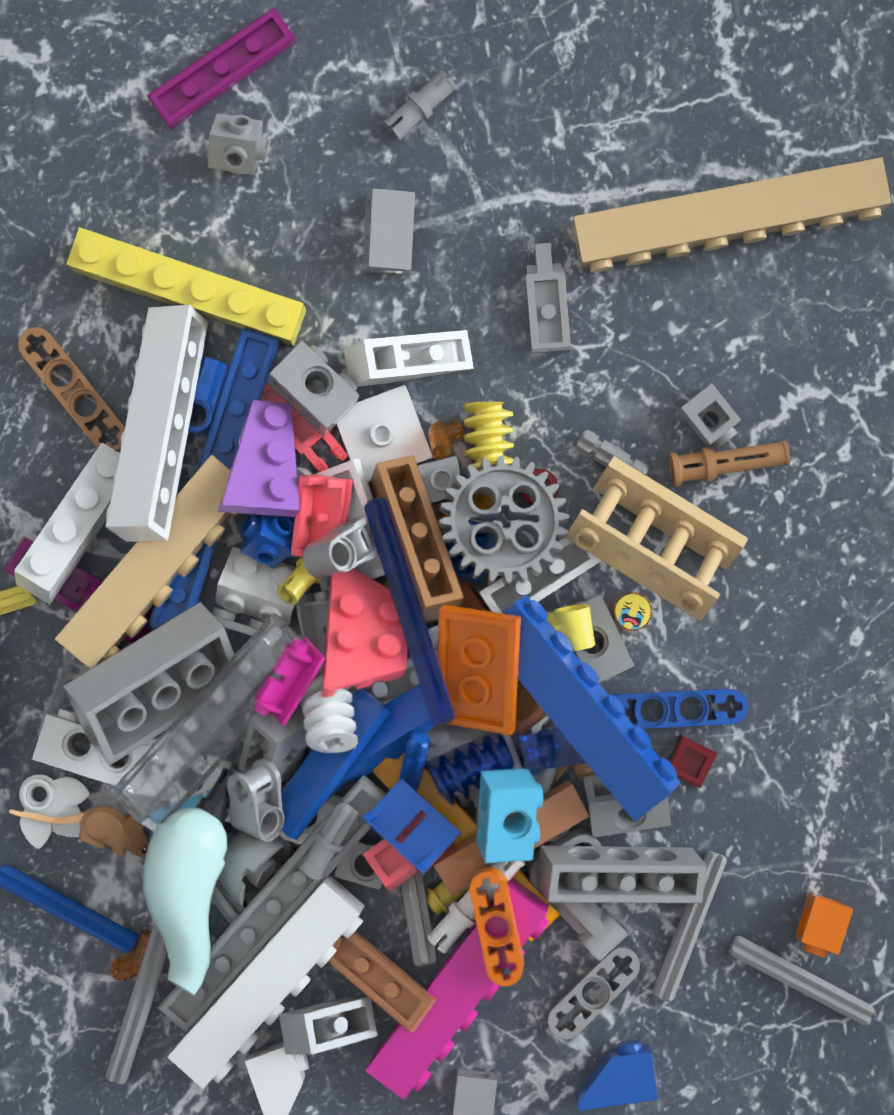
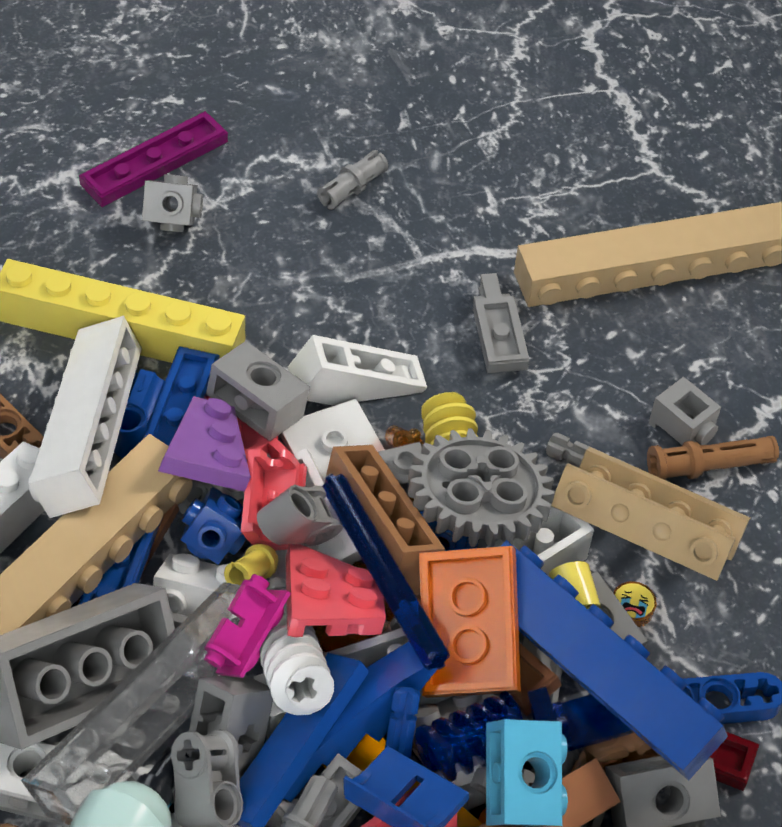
camera: 10 degrees left, 35 degrees down
(388, 231) = (328, 271): light grey hinge -> none

